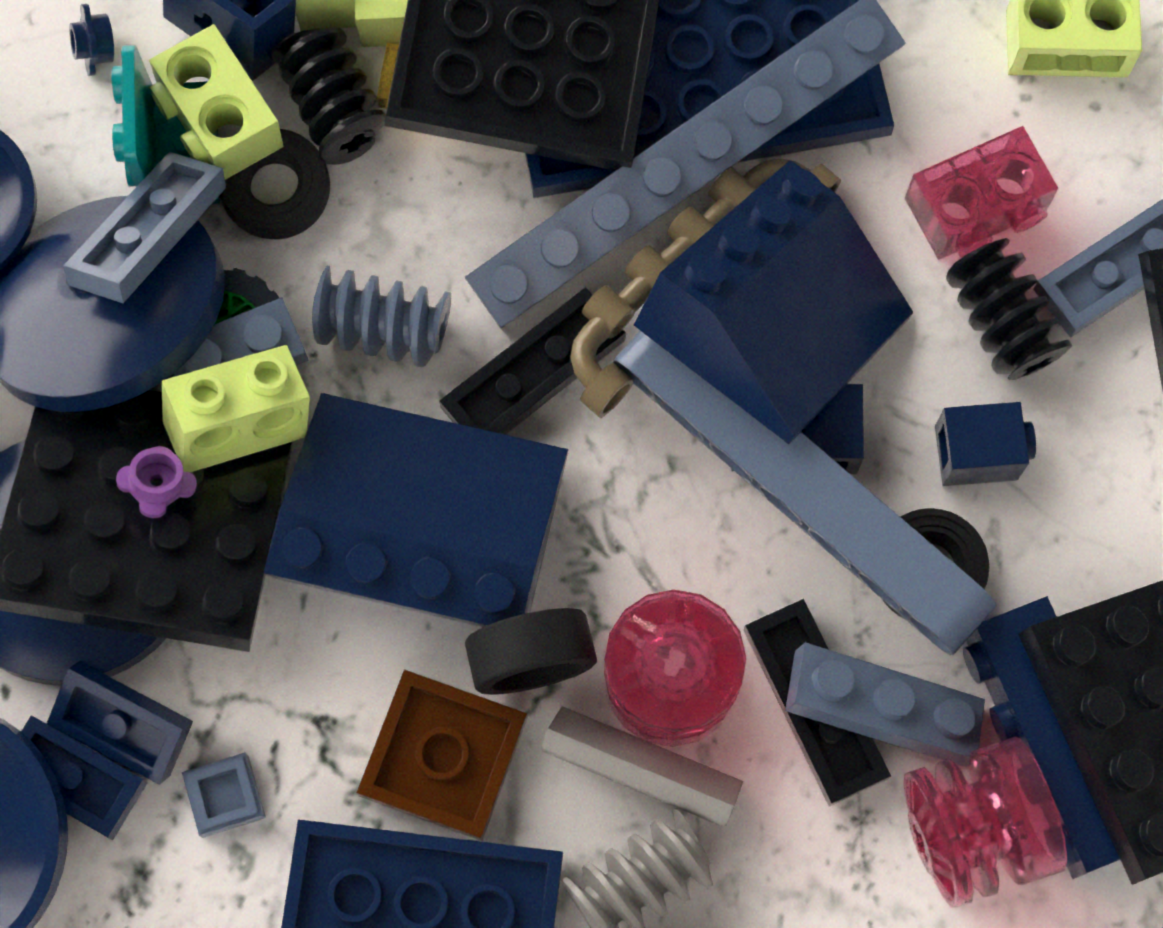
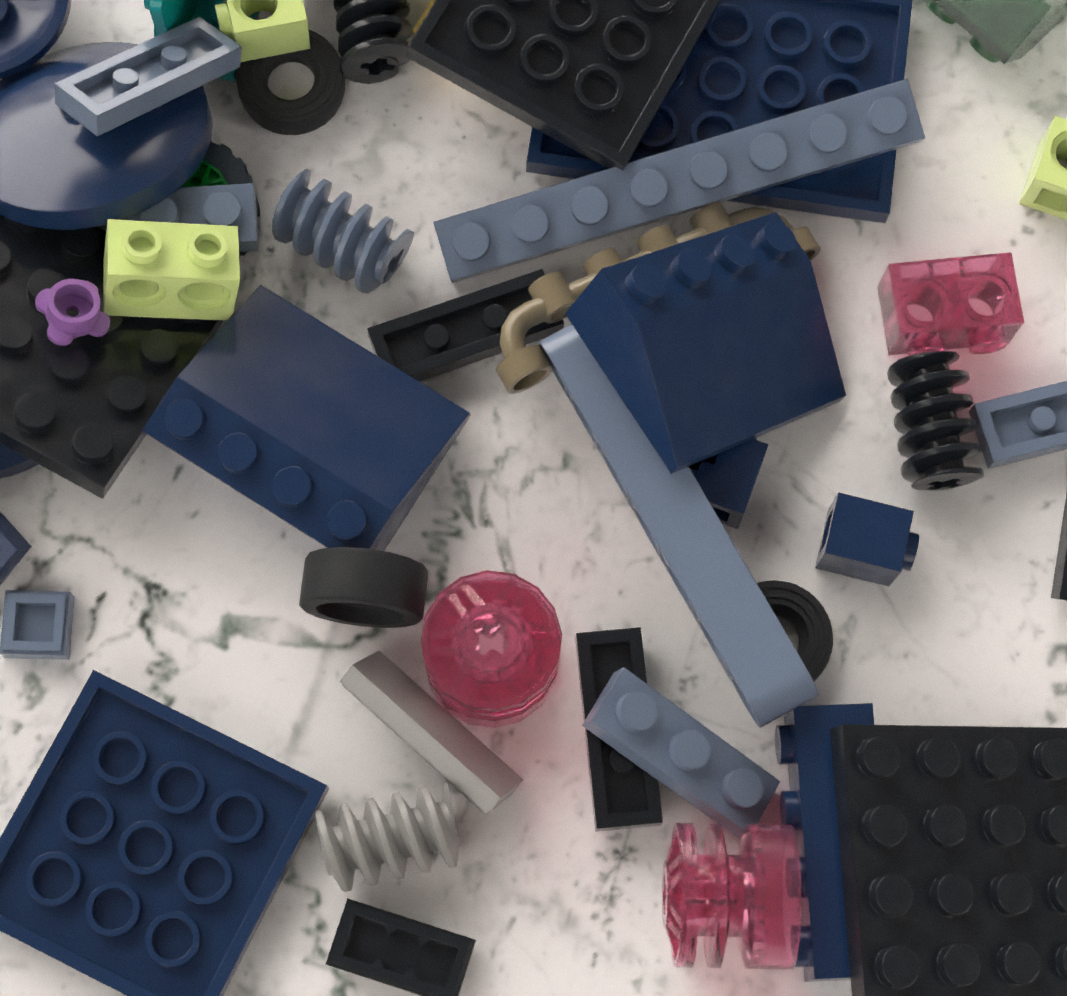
camera: 15 degrees right, 0 degrees up
(442, 755) = (250, 657): reddish brown plate -> none

